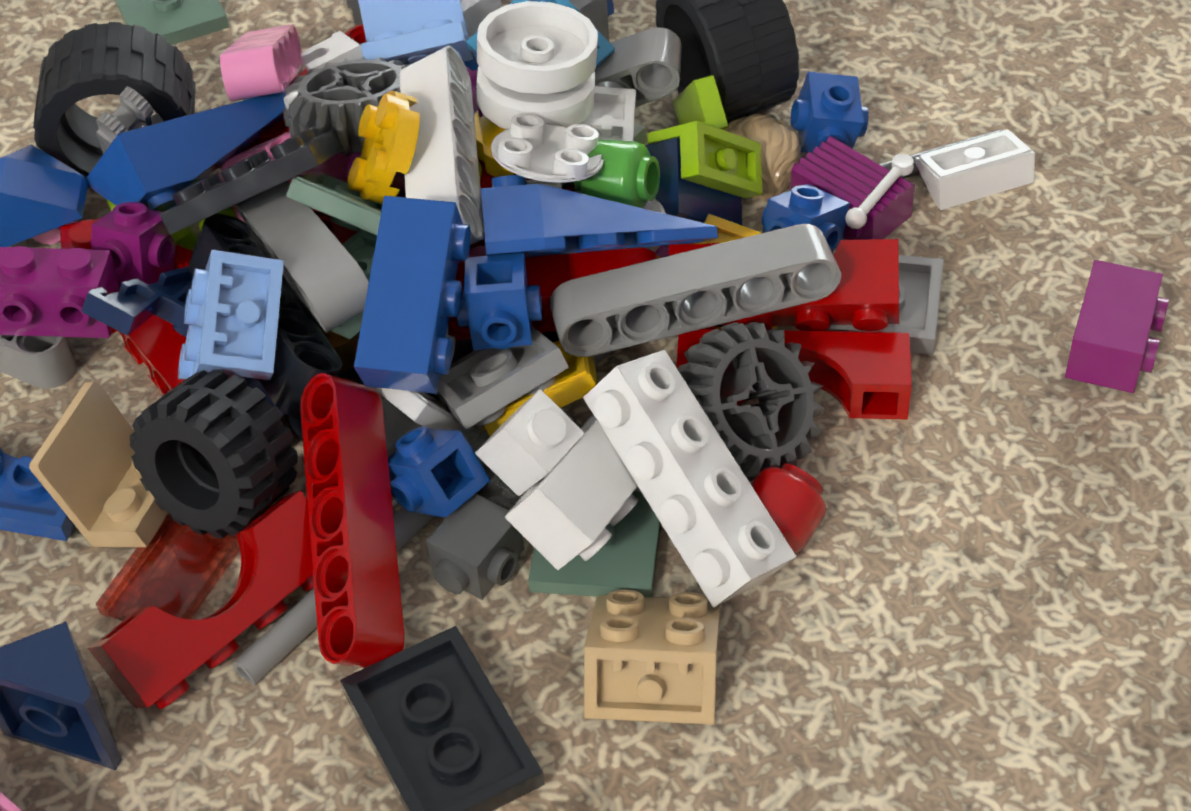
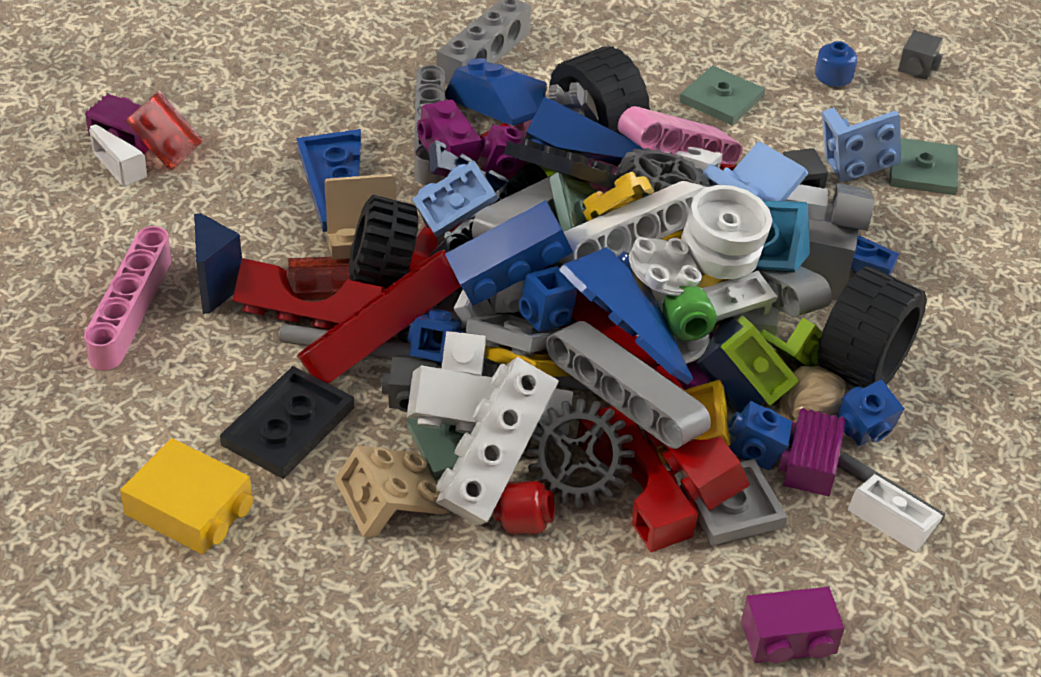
camera: 55 degrees right, 5 degrees down
(901, 166) = (841, 459): white hinge -> none

